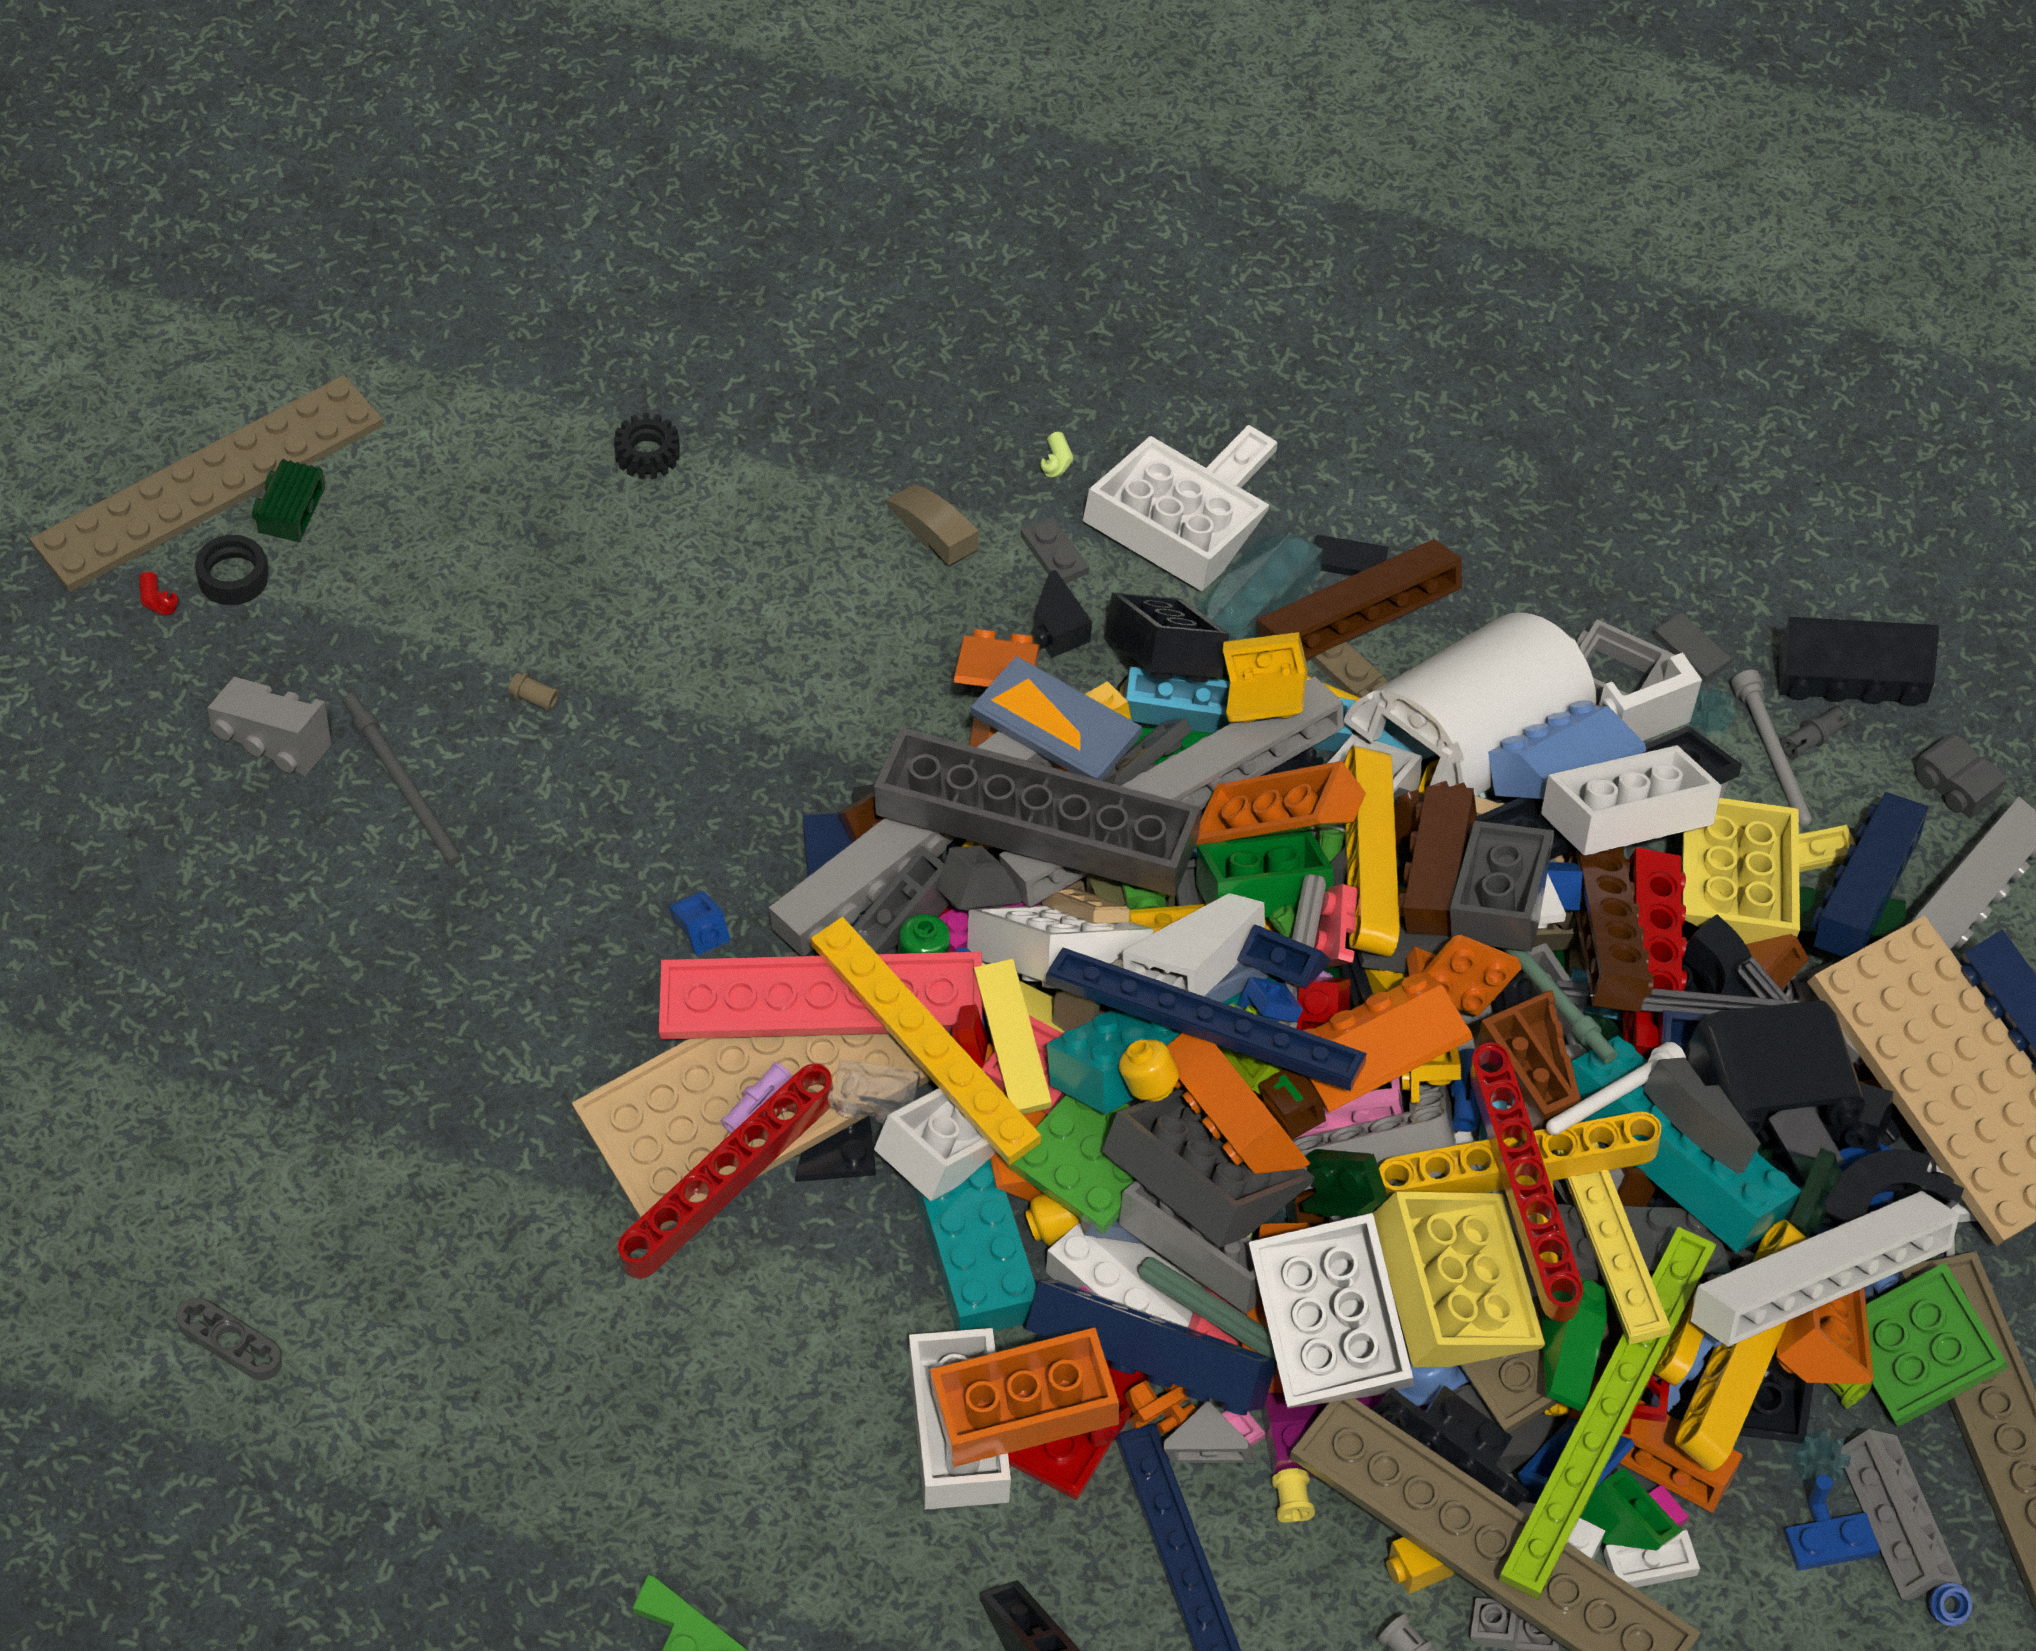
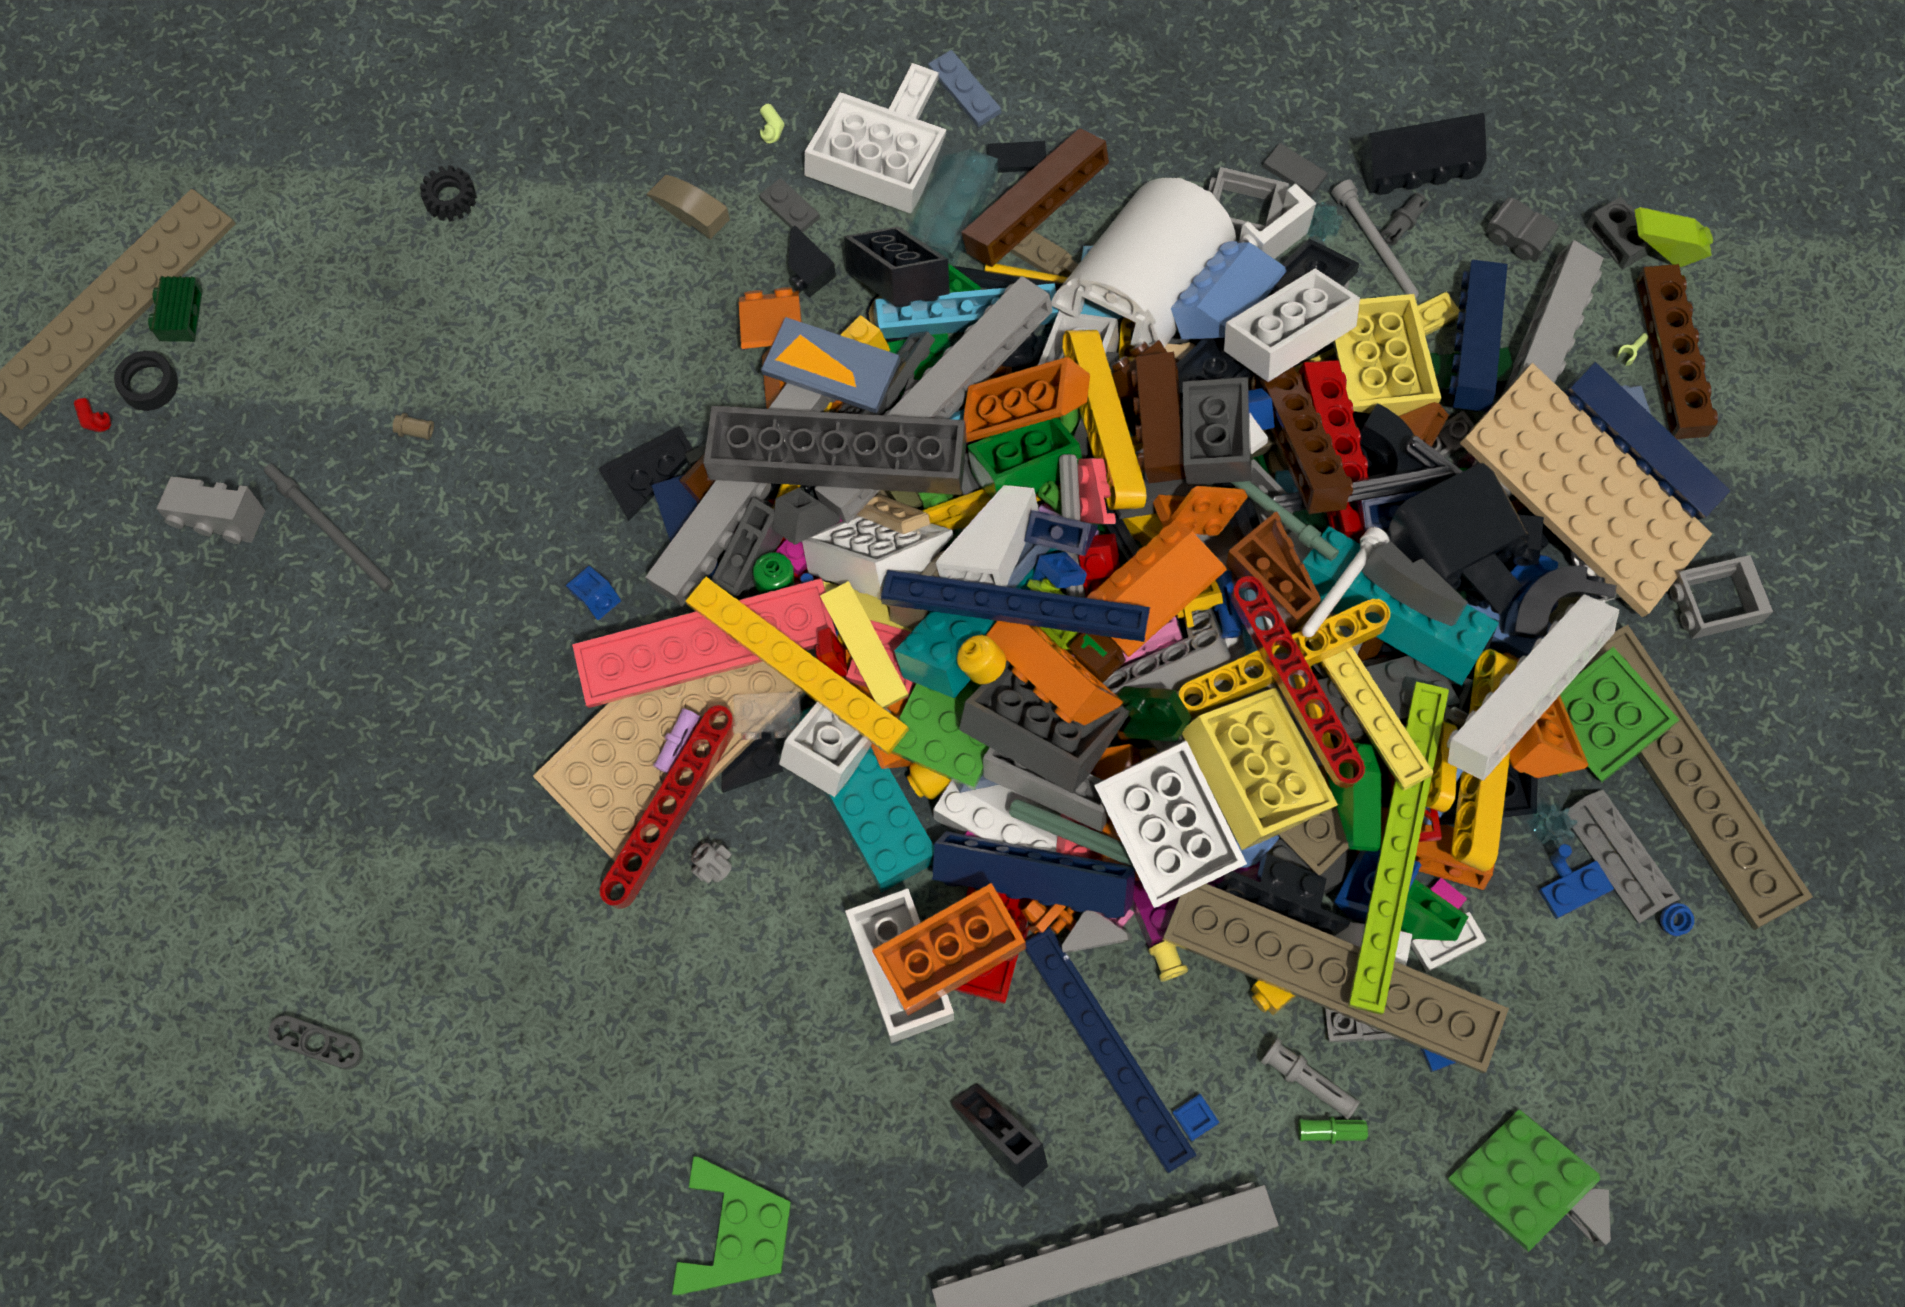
camera: 10 degrees left, 15 degrees up
(760, 1251) = (711, 862): none -> light grey gear
(781, 802) = (634, 473): none -> black wing
(1265, 677) = (985, 289): yellow bracket -> none
(1306, 468) = (965, 88): none -> sand blue plate
(1822, 1178) = (1512, 607): clear green plate -> none

